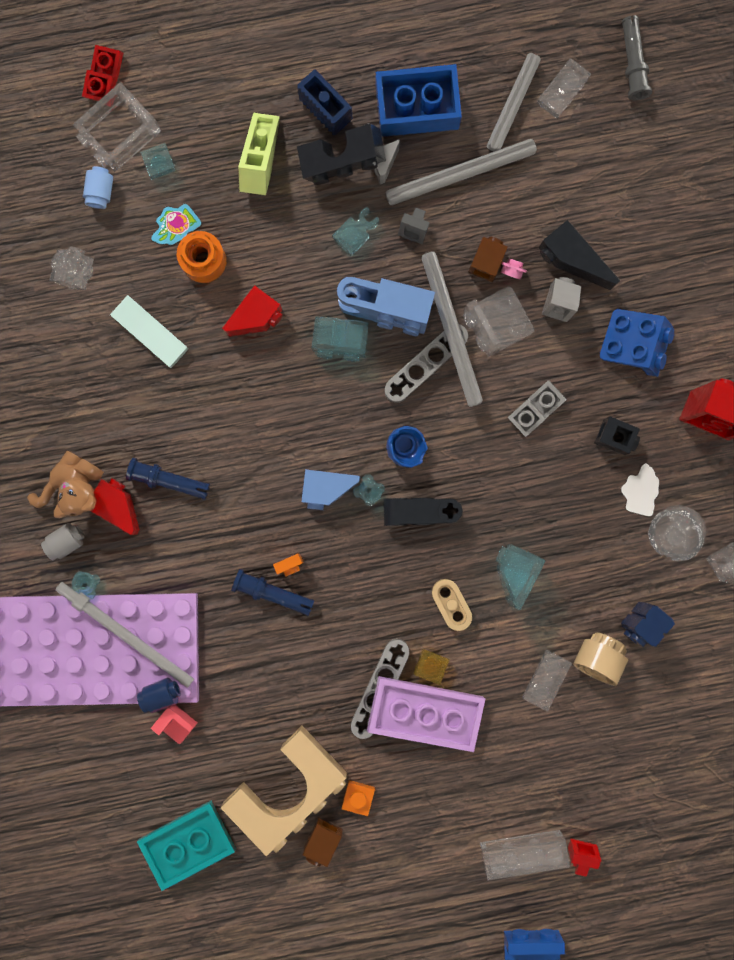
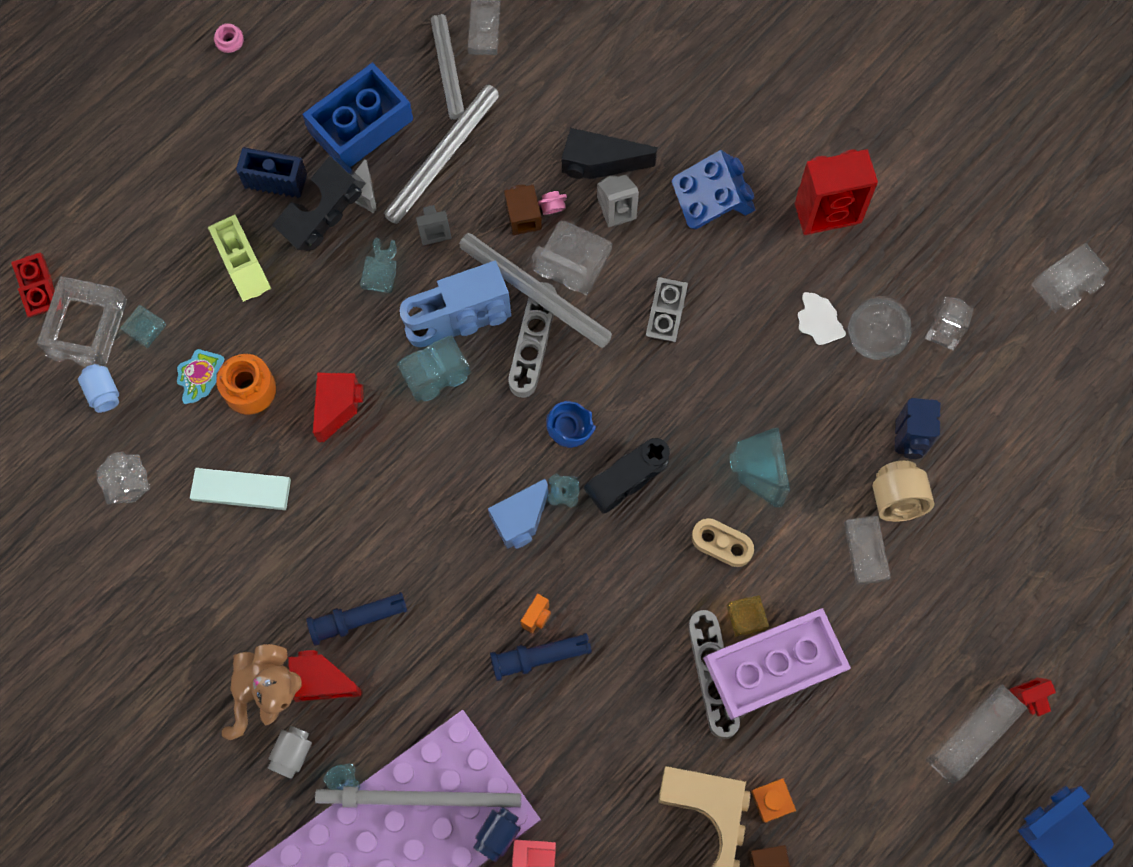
camera: 35 degrees left, 15 degrees down
(628, 434) = (760, 273): black brick -> none

